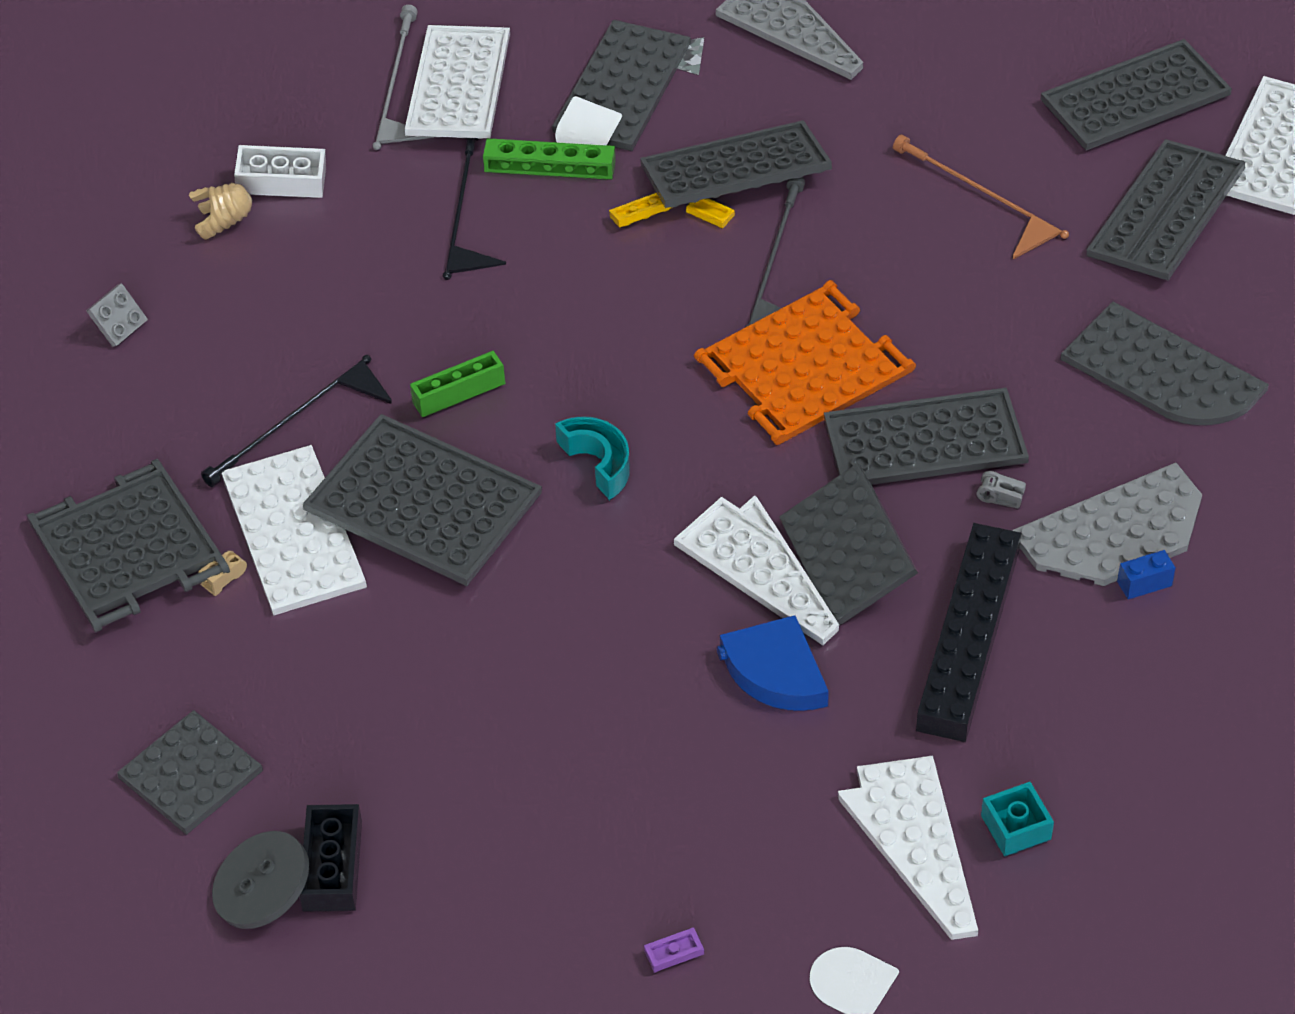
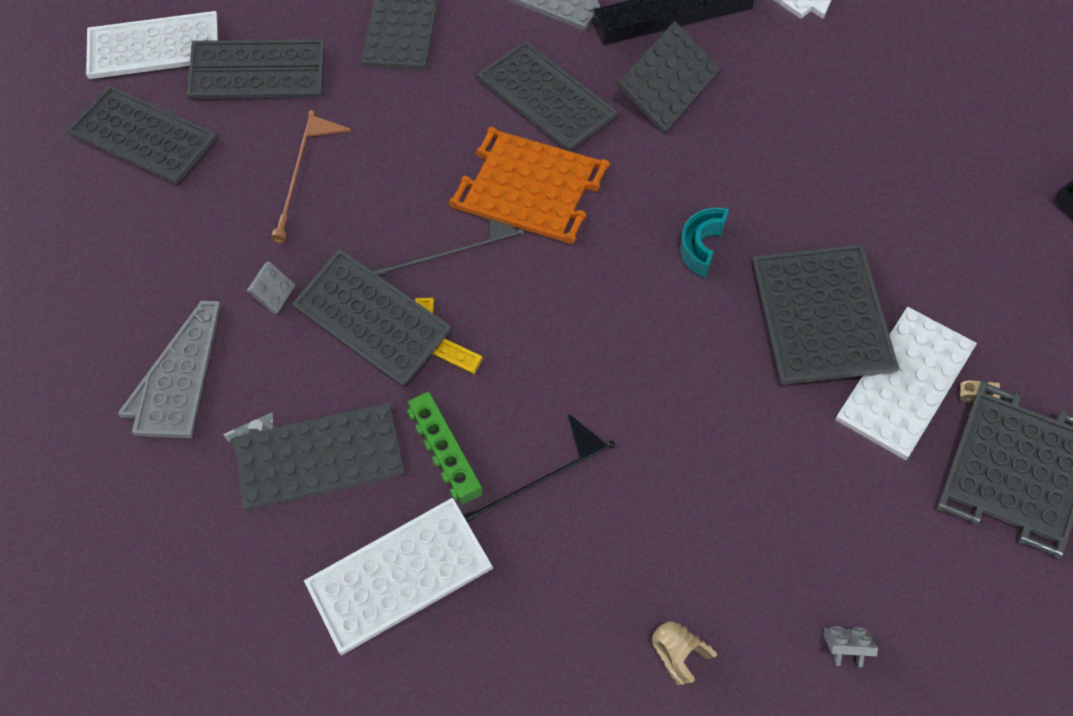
camera: 125 degrees left, 10 degrees up
(281, 171) = (603, 639): white brick -> none
(356, 378) = (753, 433): black piece -> none
(390, 130) = (485, 596): light grey piece -> none
(457, 383) = (714, 355): bright green brick -> none
(586, 123) = (393, 442): white sticker -> none
(673, 949) = (978, 27): medium lavender plate -> none
(756, 559) = (707, 128): white wing -> none
(775, 665) = (772, 76): blue brick -> none
(832, 108) = (271, 287): none -> light grey plate
(1002, 490) = (559, 46): light grey piece -> none

